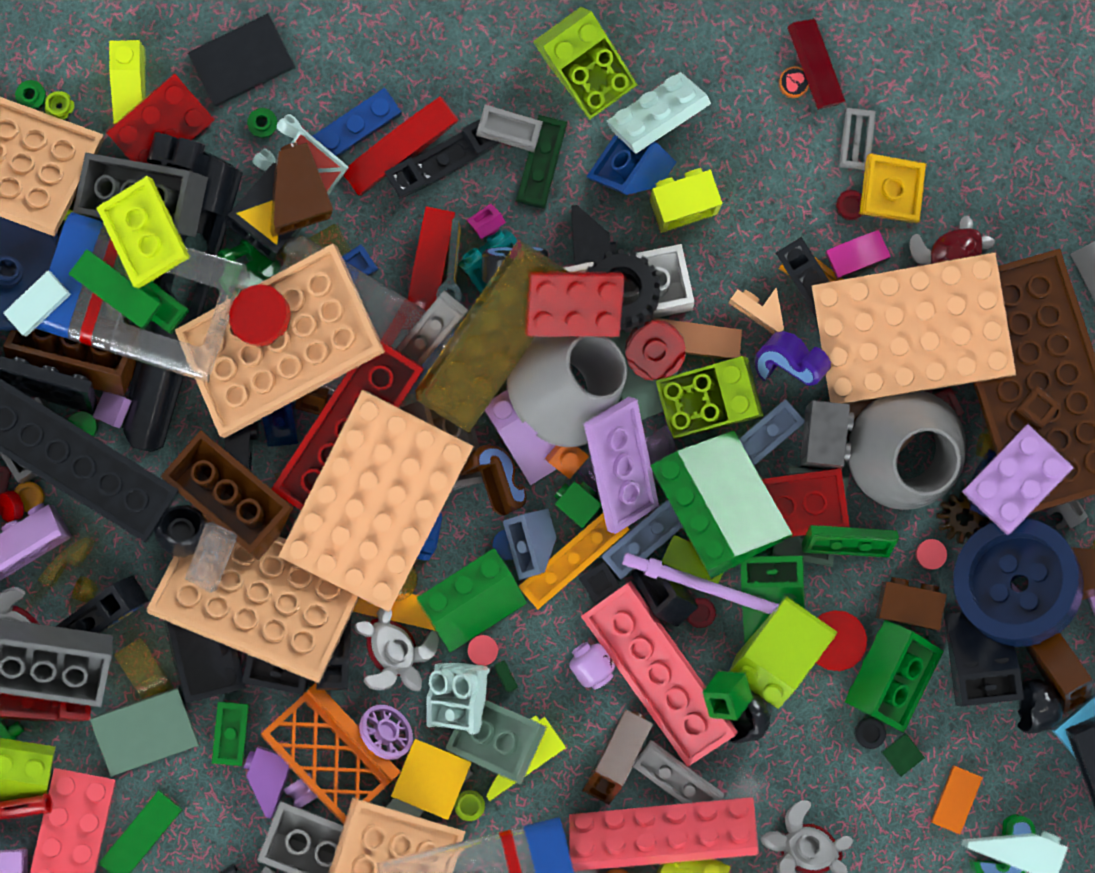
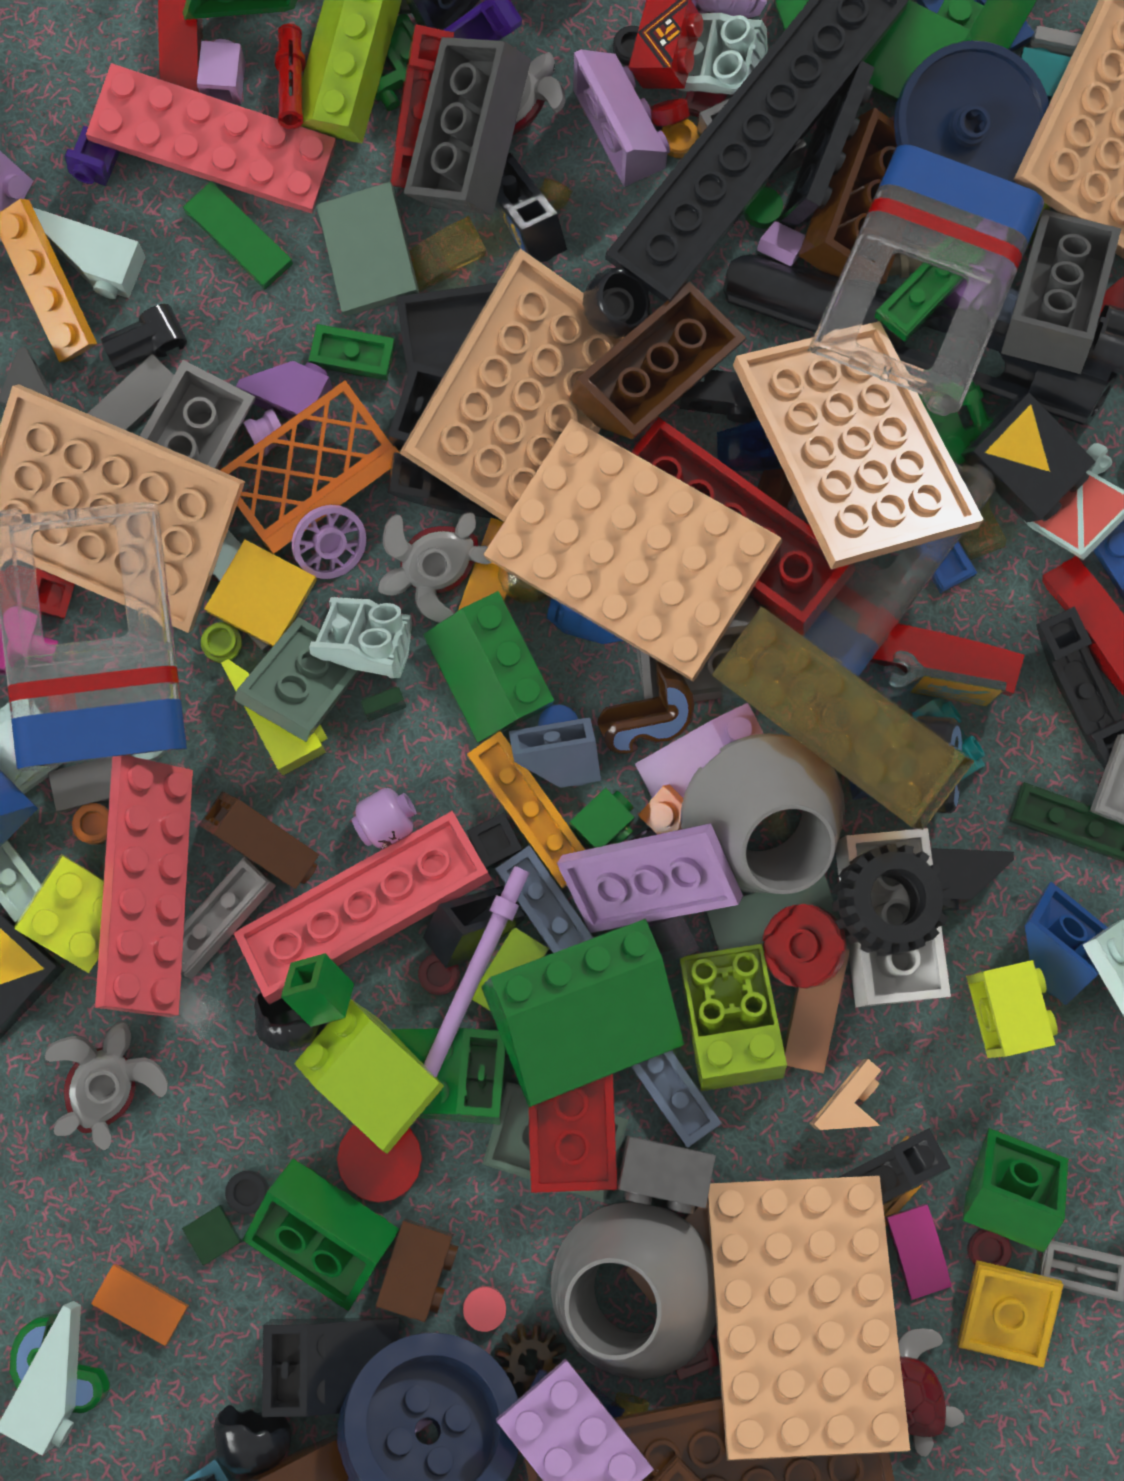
camera: 100 degrees right, 5 degrees down
(37, 303) = (927, 146): light aqua tile -> none
(73, 554) = (598, 178): clear yellow slope -> none
(115, 289) = (939, 240): green tile -> none
(143, 232) = (1013, 276): neon yellow plate -> none
(211, 557) = (578, 331): clear plate -> none
(259, 315) = (892, 418): red tile -> none
(297, 191) = (1055, 482): reddish brown slope -> none
(432, 328) = (857, 643): light grey tile -> none
(482, 650) = (421, 679): coral tile -> none
(486, 221) = (996, 738): dark pink plate -> none
(574, 304) = (878, 823): red plate -> none
(793, 356) = (780, 1137): dark purple animal -> none
(808, 188) = (1017, 1191): none -> green slope
(849, 541) = (513, 1191): green tile -> none

